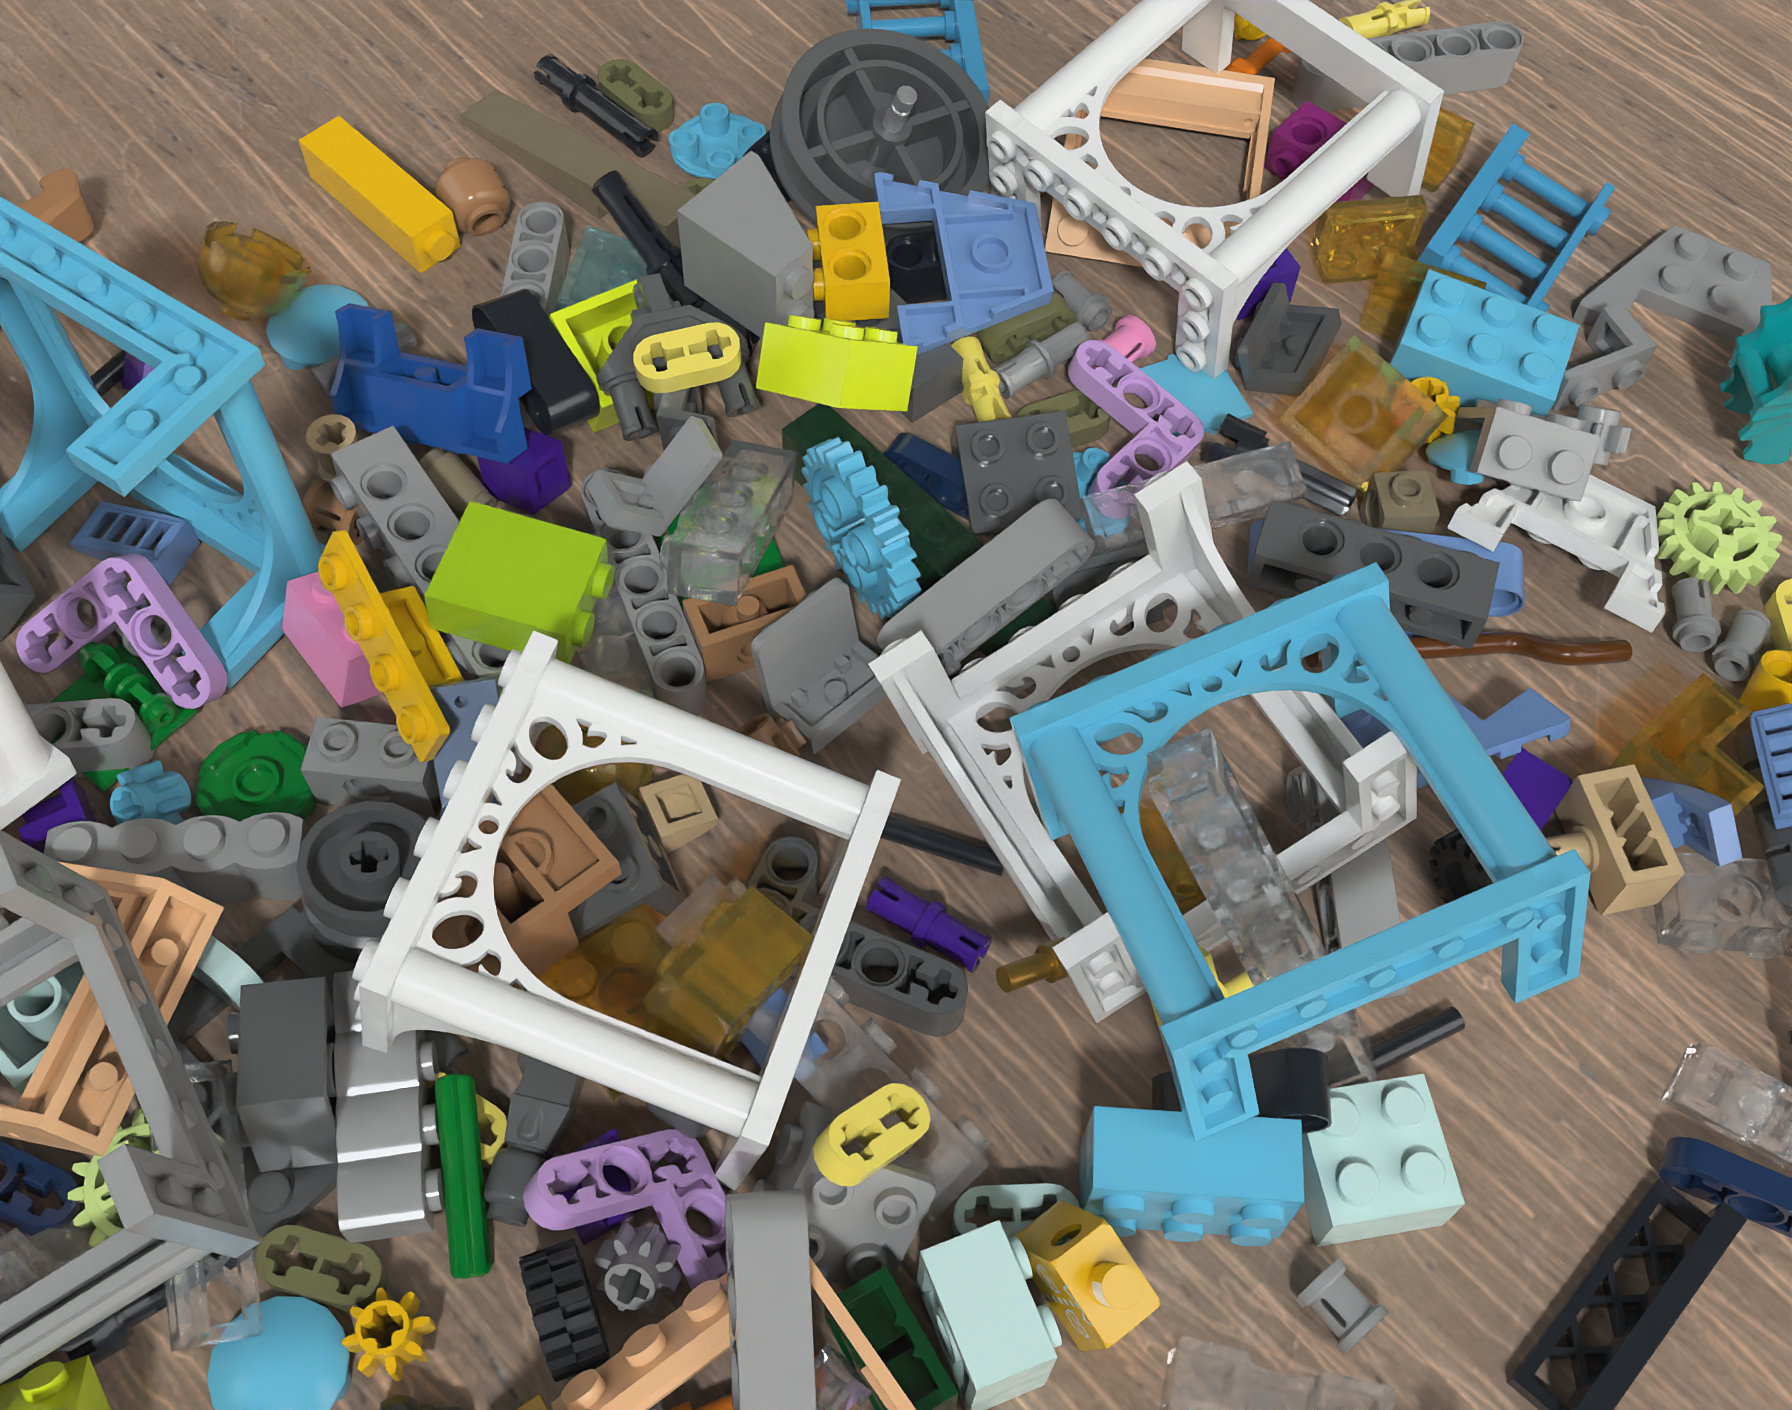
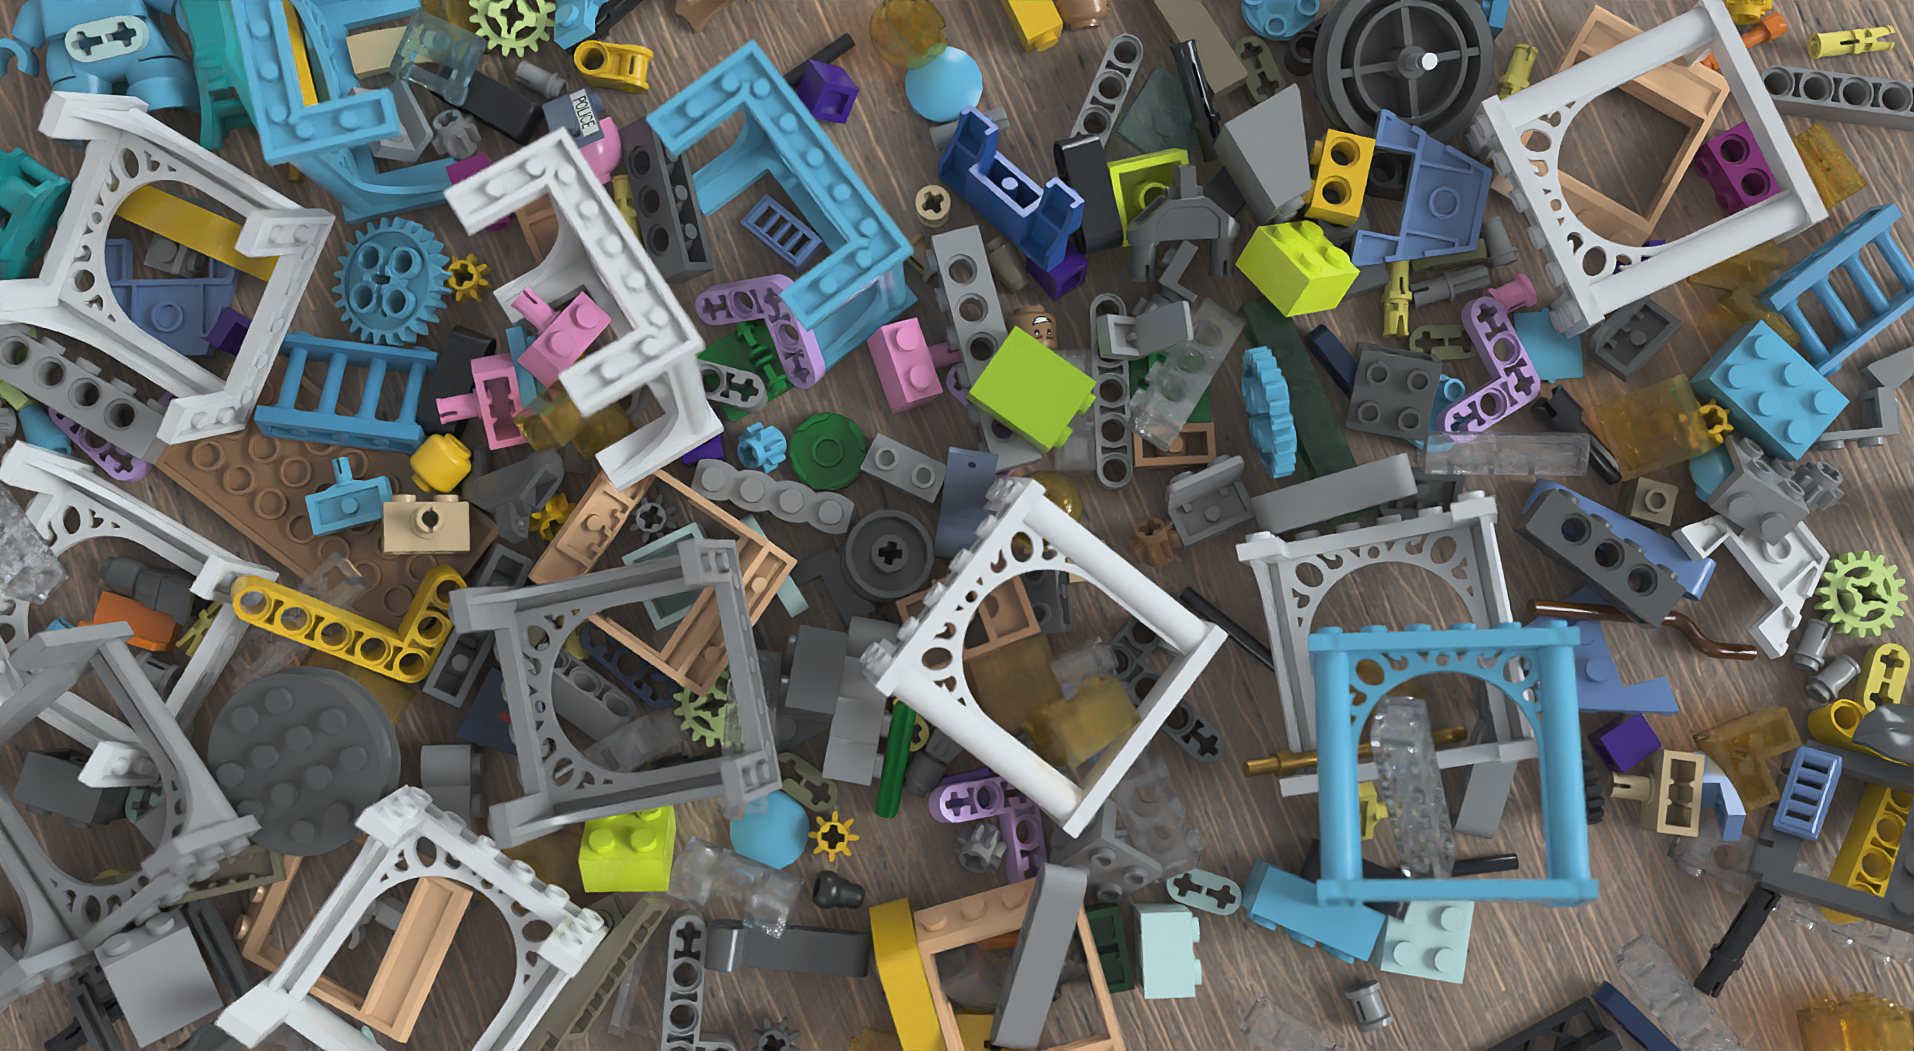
camera: 20 degrees right, 25 degrees up
(396, 641) = (942, 407): yellow bracket -> none
(564, 1310) = (934, 861): black tyre -> none
(687, 357) = (1194, 237): light yellow beam -> none
(865, 1123) = (1139, 846): light yellow beam -> none
(929, 924) = (1220, 696): dark purple pin -> none
(1089, 1279) = (1231, 956): yellow torso -> none

